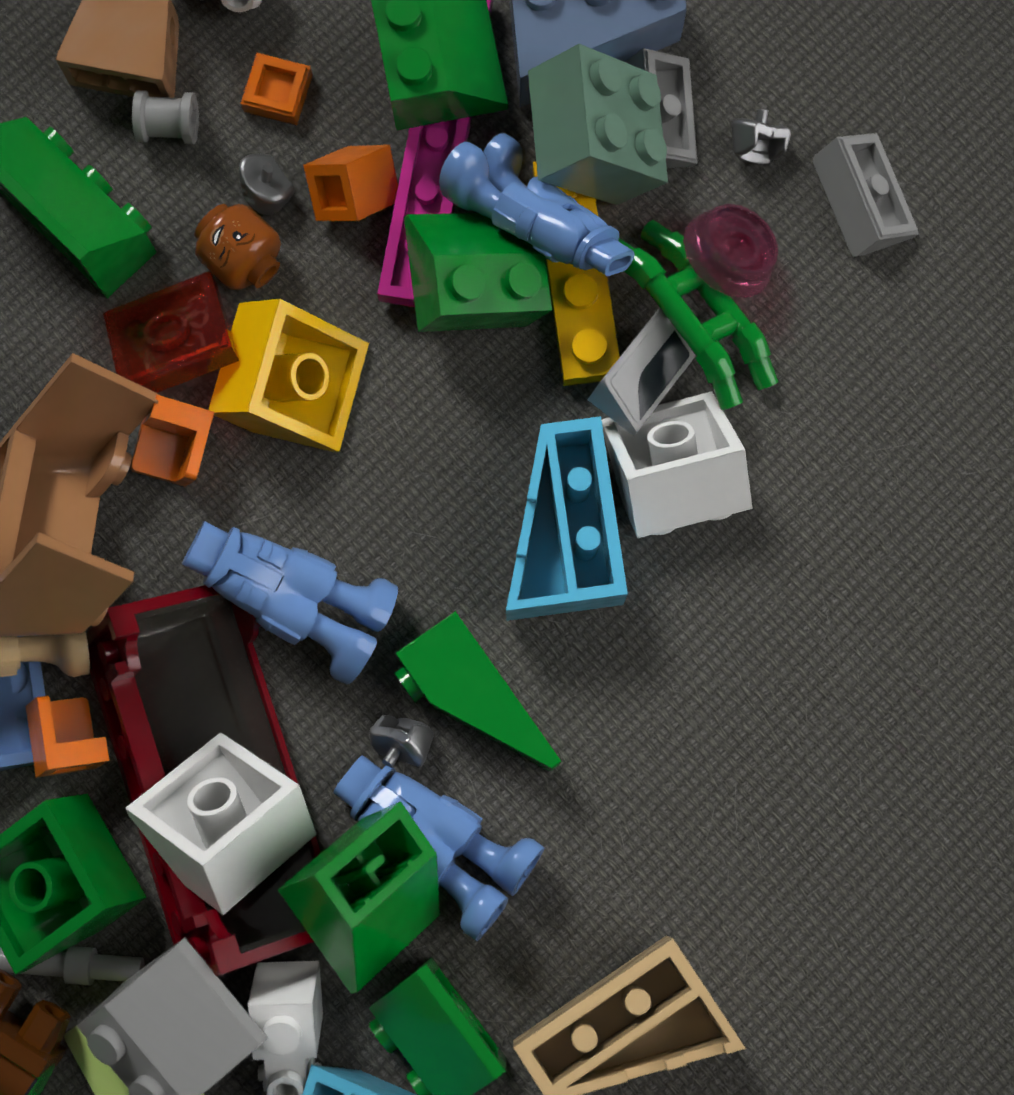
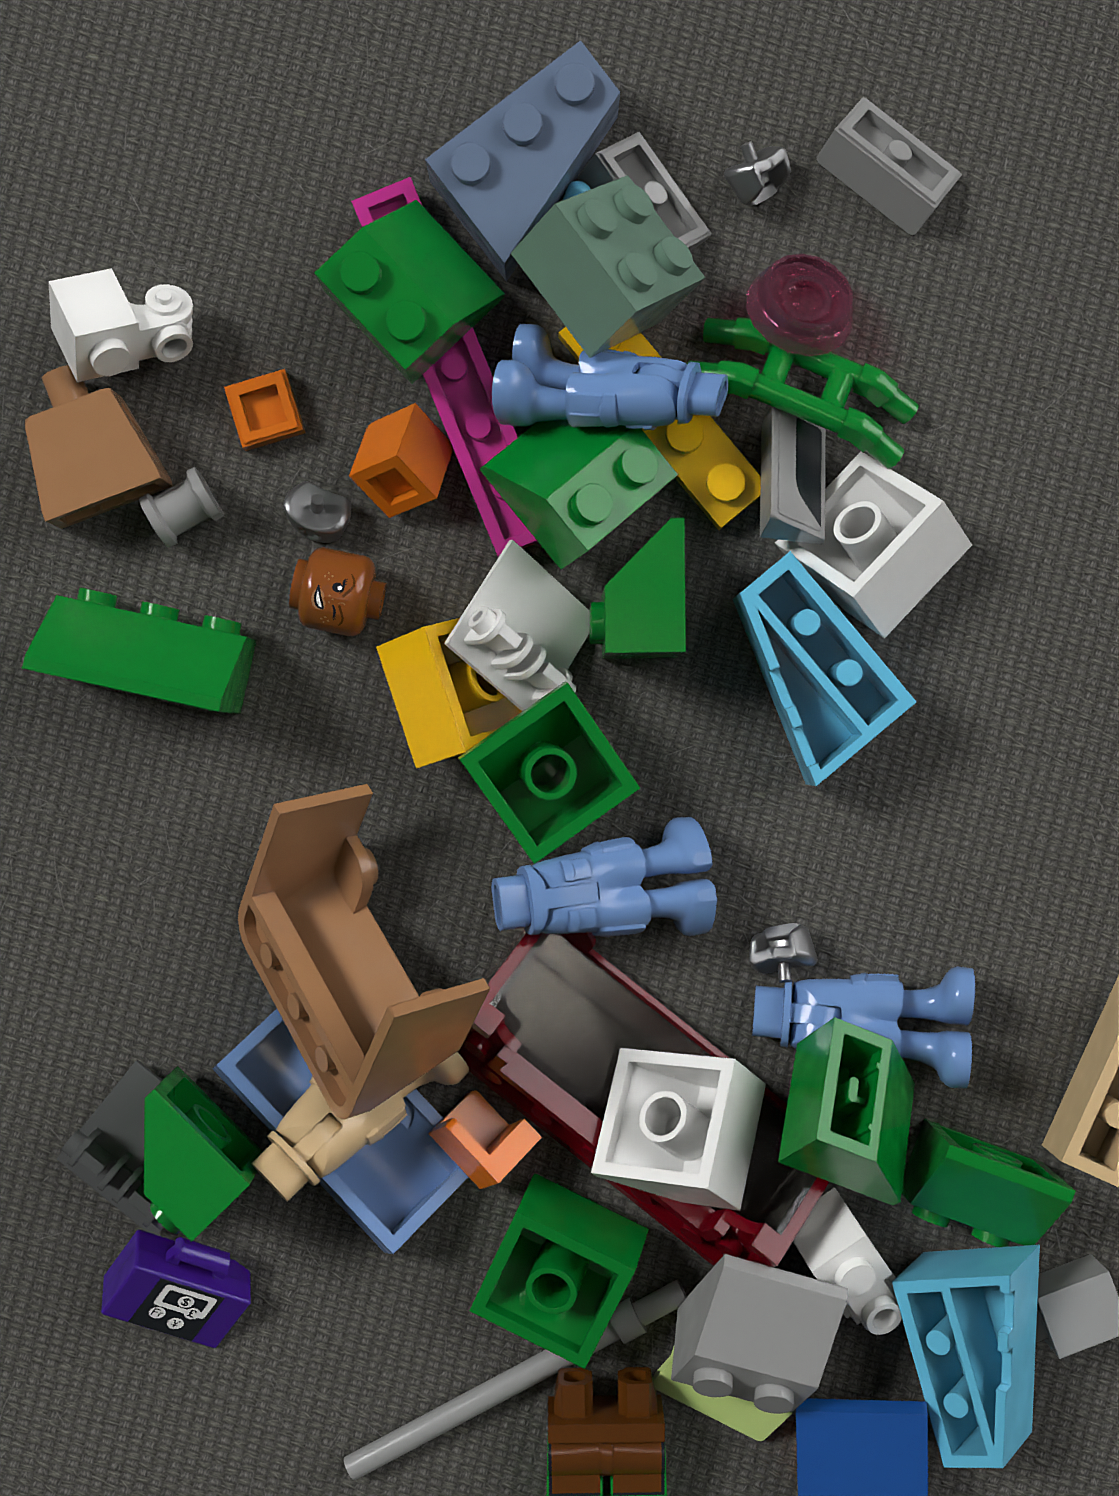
camera: 30 degrees left, 10 degrees up
(171, 334) = (333, 717): clear red tile -> none
(172, 441) = (403, 816): orange panel -> none
(303, 469) = (549, 772): none -> green slope
(357, 358) = (521, 629): none -> white hinge
(465, 388) = (645, 601): none -> green slope
(466, 686) = (812, 870): green slope -> none

